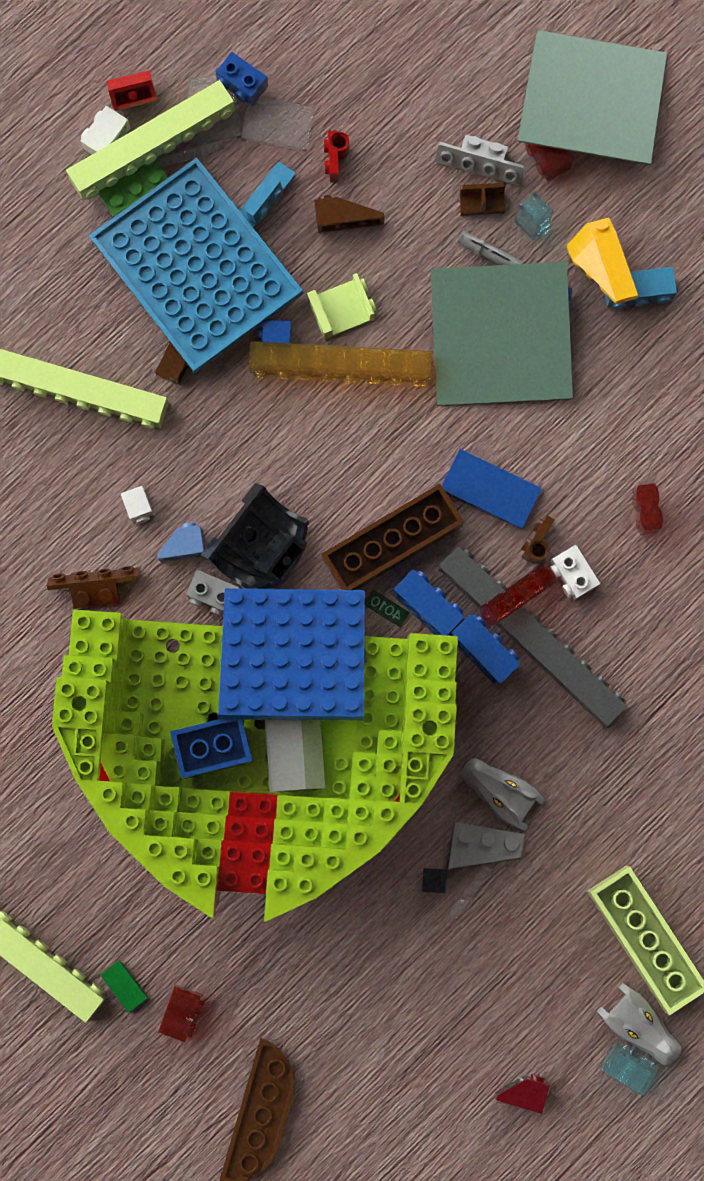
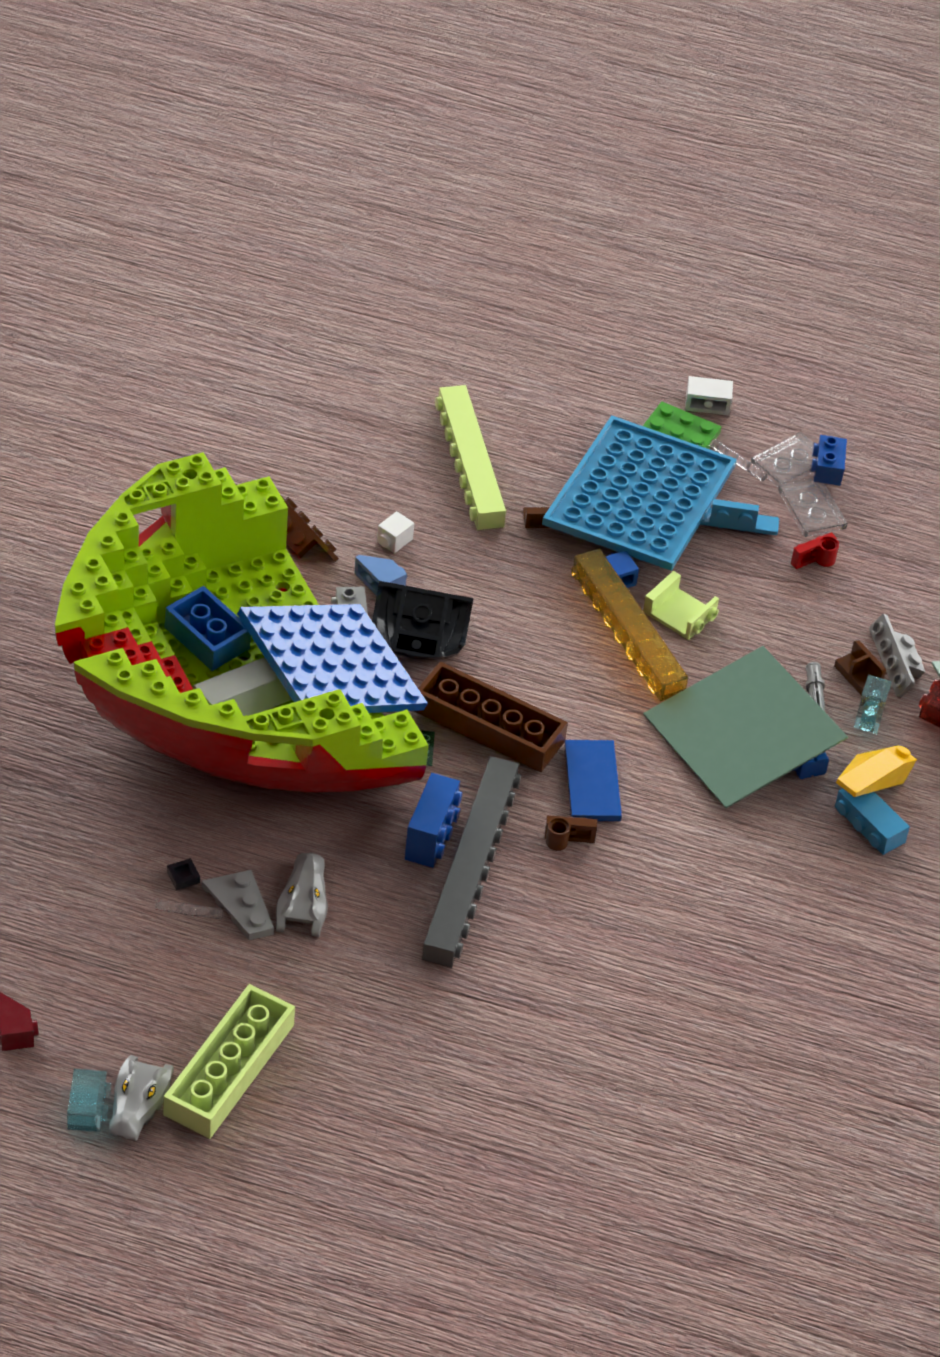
camera: 55 degrees right, 35 degrees down
(131, 90) = (760, 395): red brick -> none
(151, 140) = (726, 419): yellowish green brick -> none
(340, 214) = (764, 575): reddish brown slope -> none
(428, 604) = (450, 750): blue brick -> none
(518, 594) = (505, 818): clear red brick -> none
(574, 573) = (557, 869): white brick -> none
(649, 516) = (660, 902): clear red brick -> none

